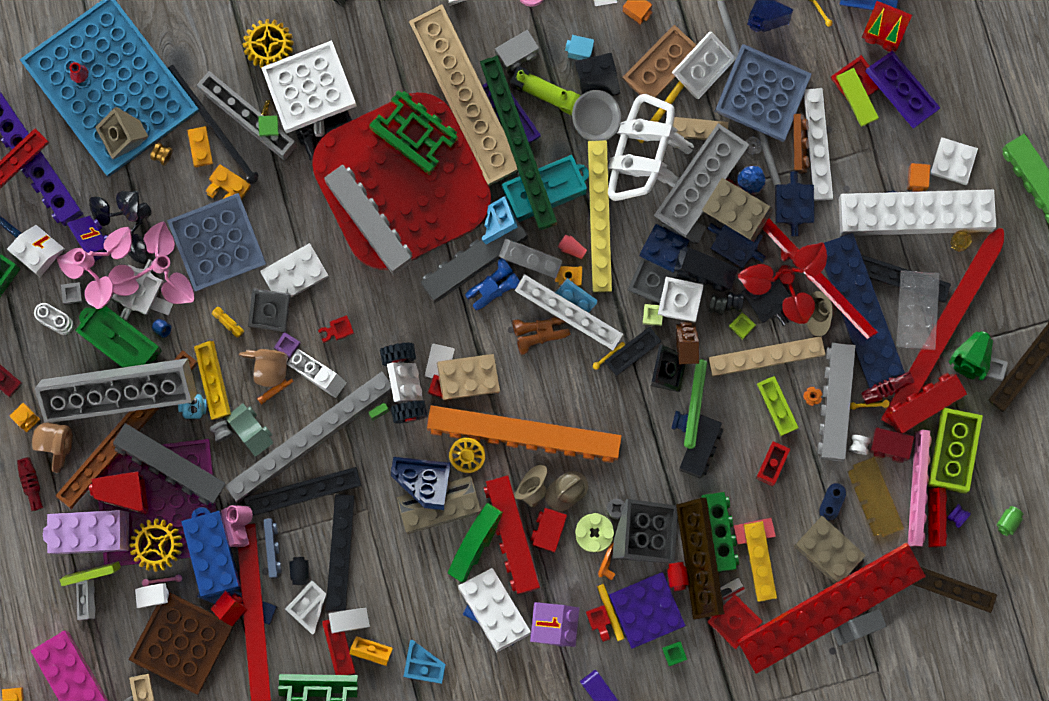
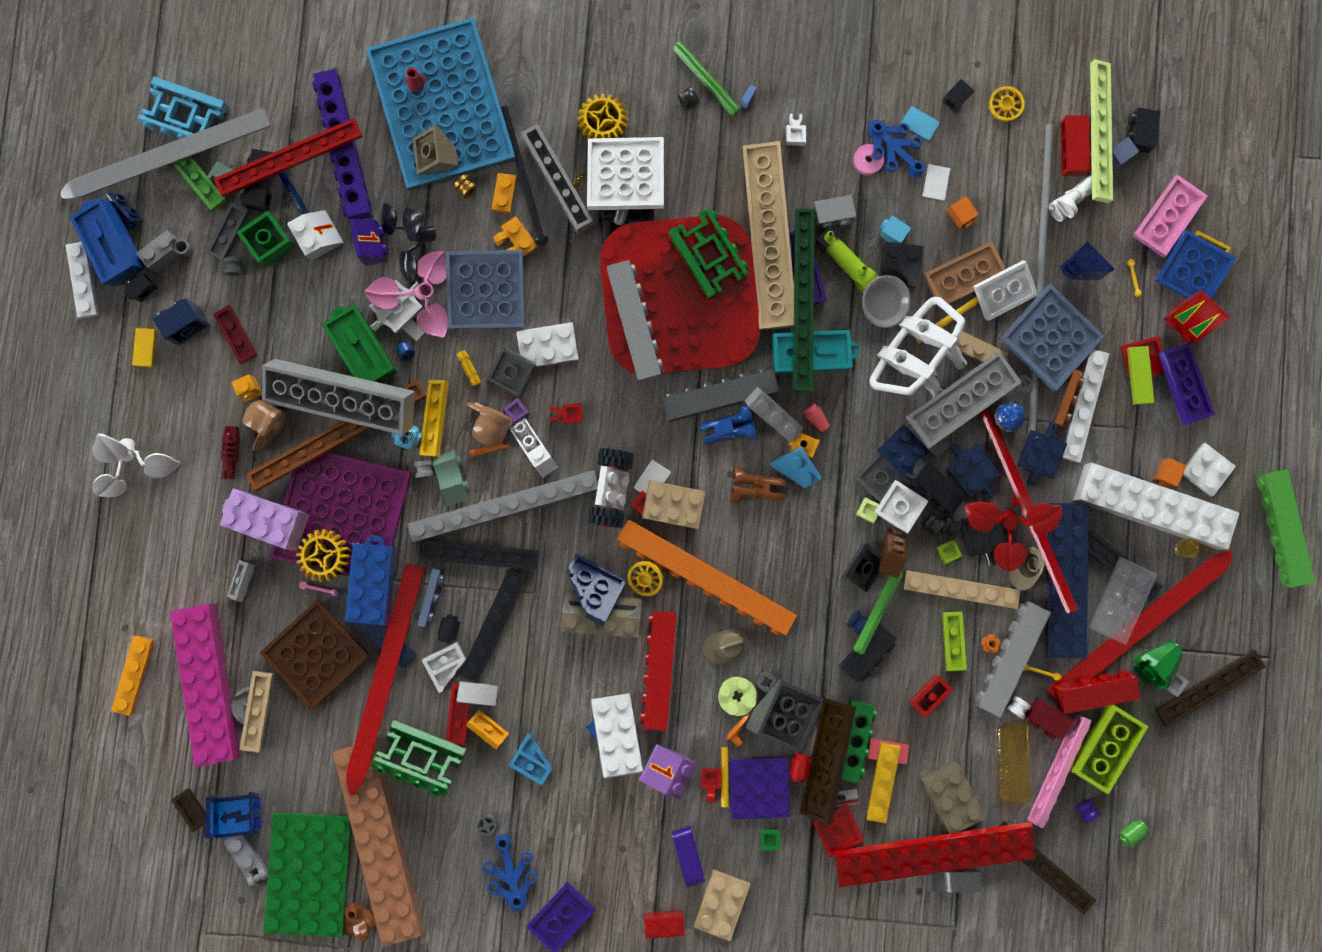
camera: 15 degrees right, 5 degrees up
(53, 319) = (307, 305): white brick -> none
(71, 293) = (334, 287): light grey plate -> none
(77, 261) = (347, 261): bright pink plant -> none
(90, 573) = (253, 559): lime tile -> none
(121, 491) = (308, 494): red slope -> none
(151, 595) = (302, 601): white slope -> none
(169, 464) = (363, 485): dark grey brick -> none
(229, 608) = (368, 641): red brick -> none
(235, 519) = (404, 561): bright pink plate -> none
(268, 126) = (573, 196): bright green tile -> none
(378, 411) = (579, 505): bright green tile -> none
(474, 542) = (621, 664): green slope -> none
(499, 220) = (757, 368): dark azure wing -> none
(532, 486) = (695, 630): dark tan piece -> none
(549, 530) = (696, 678): red brick -> none
(568, 312) = (790, 479): white plate -> none
(596, 365) = (797, 538): yellow hinge -> none
(599, 216) = (853, 398): light yellow plate -> none
(632, 351) = (837, 538): black plate -> none
(737, 209) = (988, 441): dark tan brick -> none
(832, 501) = (970, 749): dark blue plate -> none
(887, 388) = (1066, 664): dark red hinge -> none
(937, 517) = (1066, 805): red plate -> none

